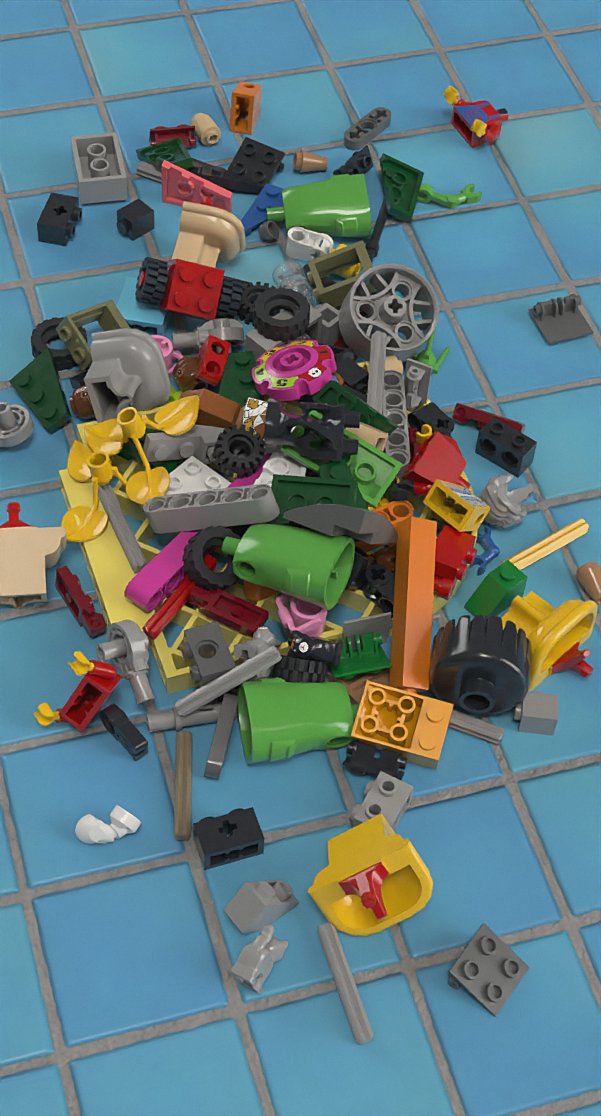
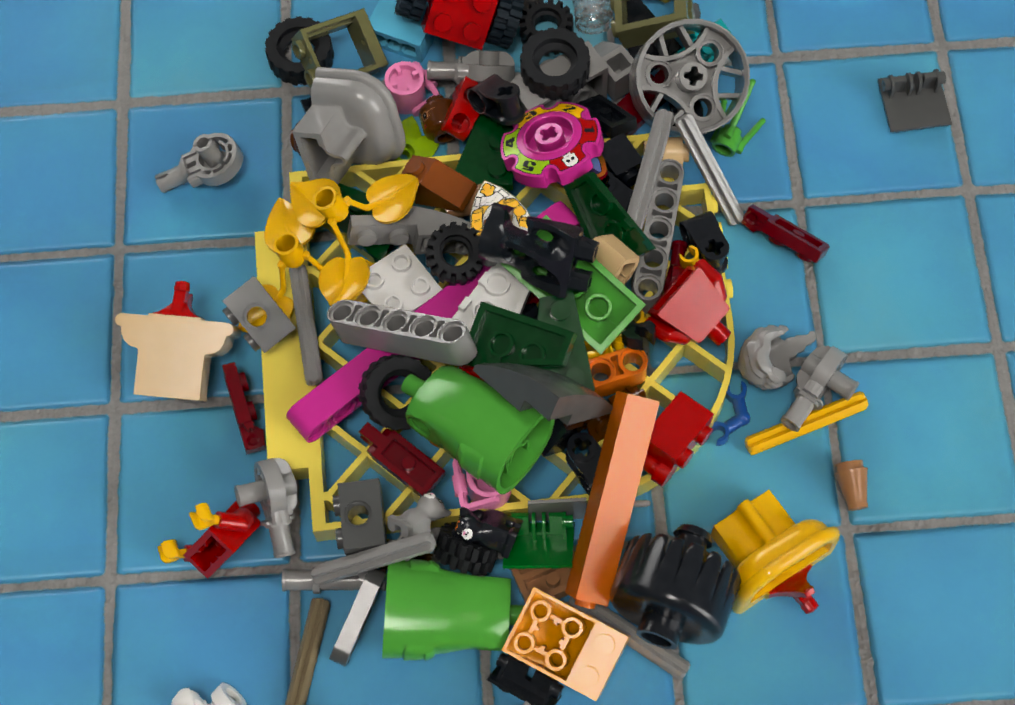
camera: 20 degrees right, 15 degrees up
(42, 391) = (263, 116): dark green wing -> none
(79, 505) = (253, 295): none -> dark grey brick
(122, 729) = (253, 586): black piece -> none
(173, 603) = (344, 434): red axle -> none
(241, 345) = (497, 100): none -> black piece
(404, 351) = (709, 169): none -> light grey axle
(416, 383) = (697, 184): light grey hinge -> none
(463, 511) = (703, 366): yellow torso -> none
(497, 590) = (729, 479): green slope -> none
(505, 447) = (794, 277): black brick -> none
(537, 713) = (735, 651): light grey brick -> none
(543, 511) = (813, 380): none -> light grey pin

